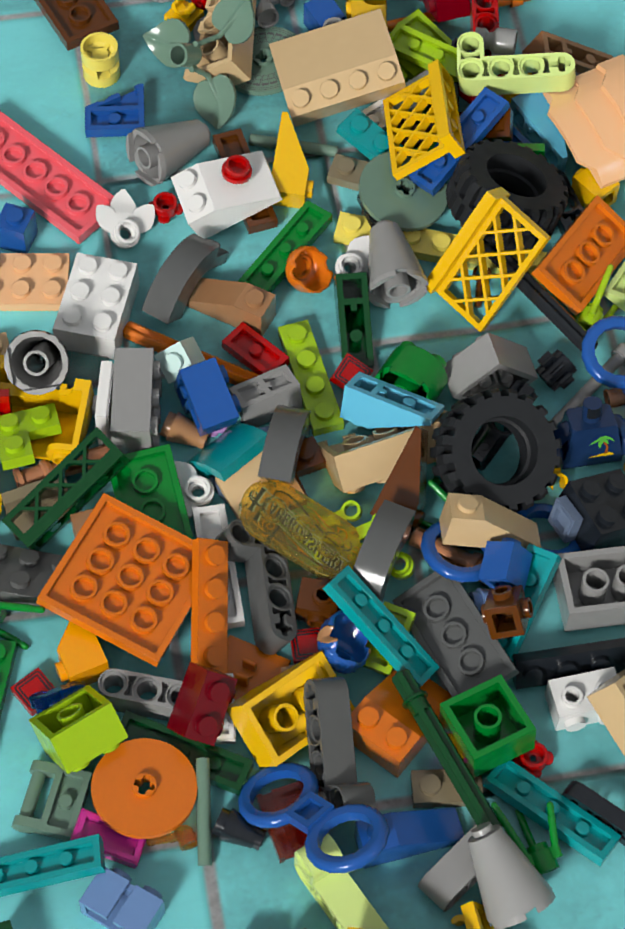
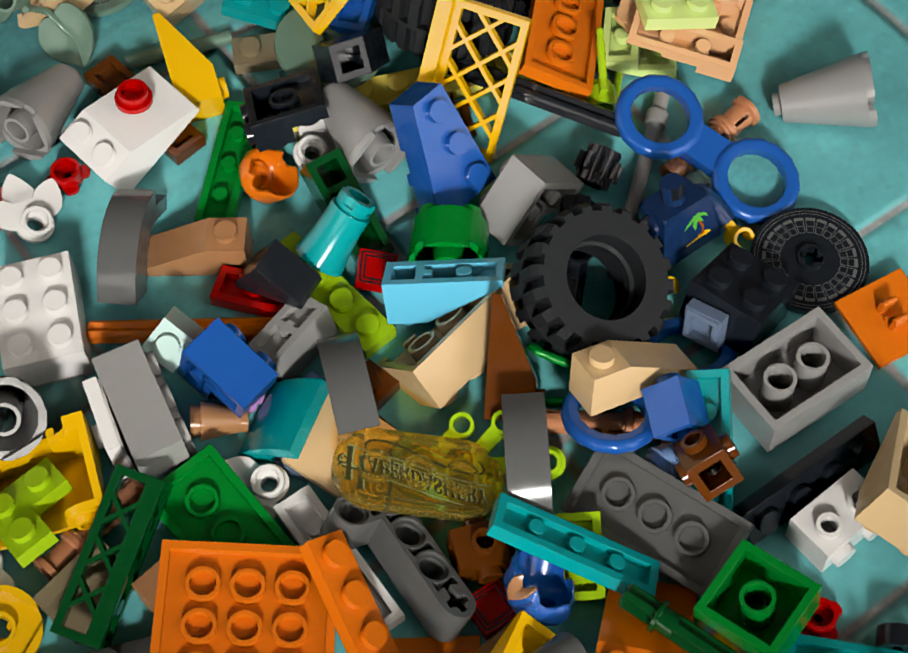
camera: 20 degrees left, 0 degrees up
(277, 348) = (279, 276): none -> black slope
(333, 334) = (336, 232): none -> teal plant
(339, 223) = (279, 106): none -> black plate
(413, 206) = (351, 55): none -> black slope
(439, 305) = (438, 147): none -> blue wedge

